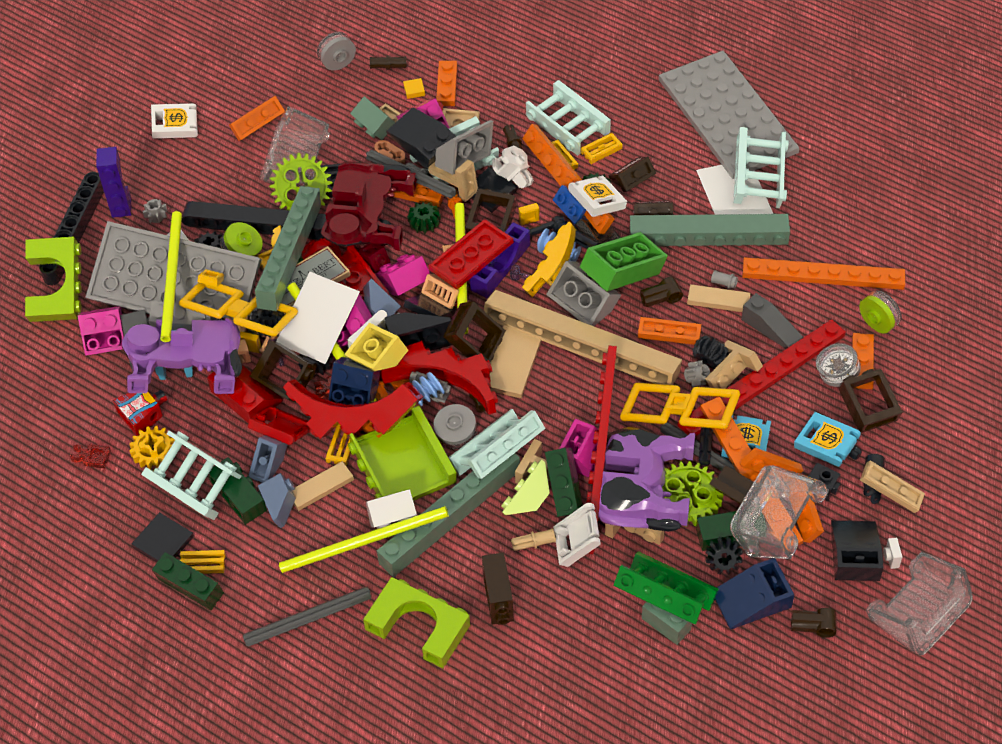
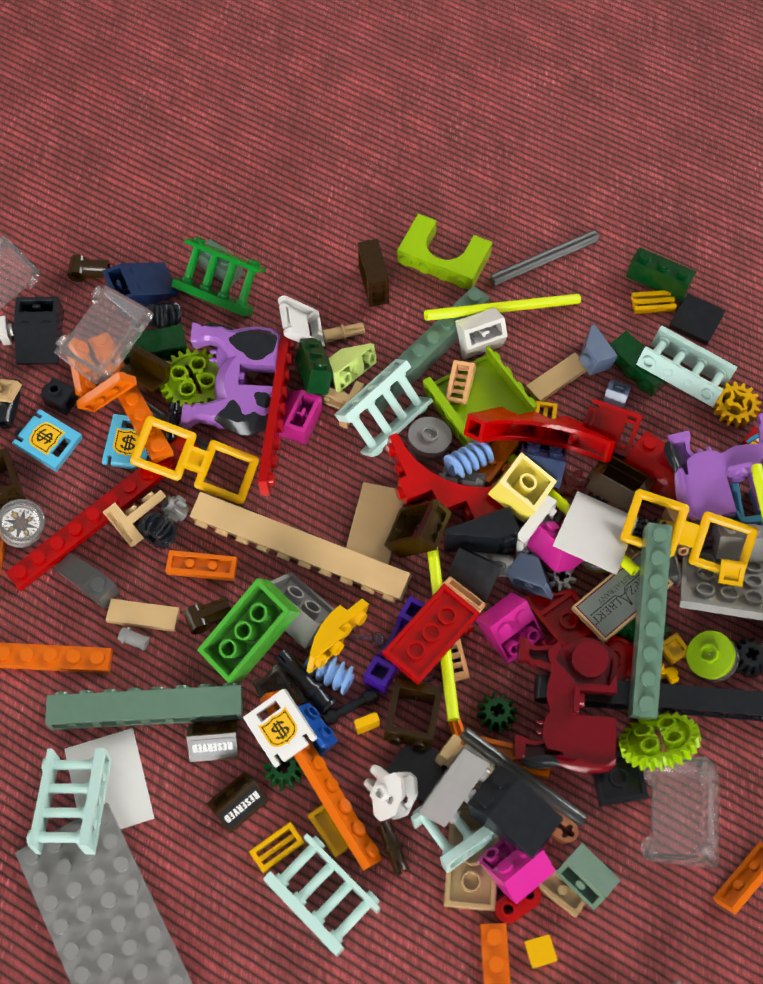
camera: 175 degrees right, 10 degrees up
(417, 486) = (460, 366): none -> light nougat slope

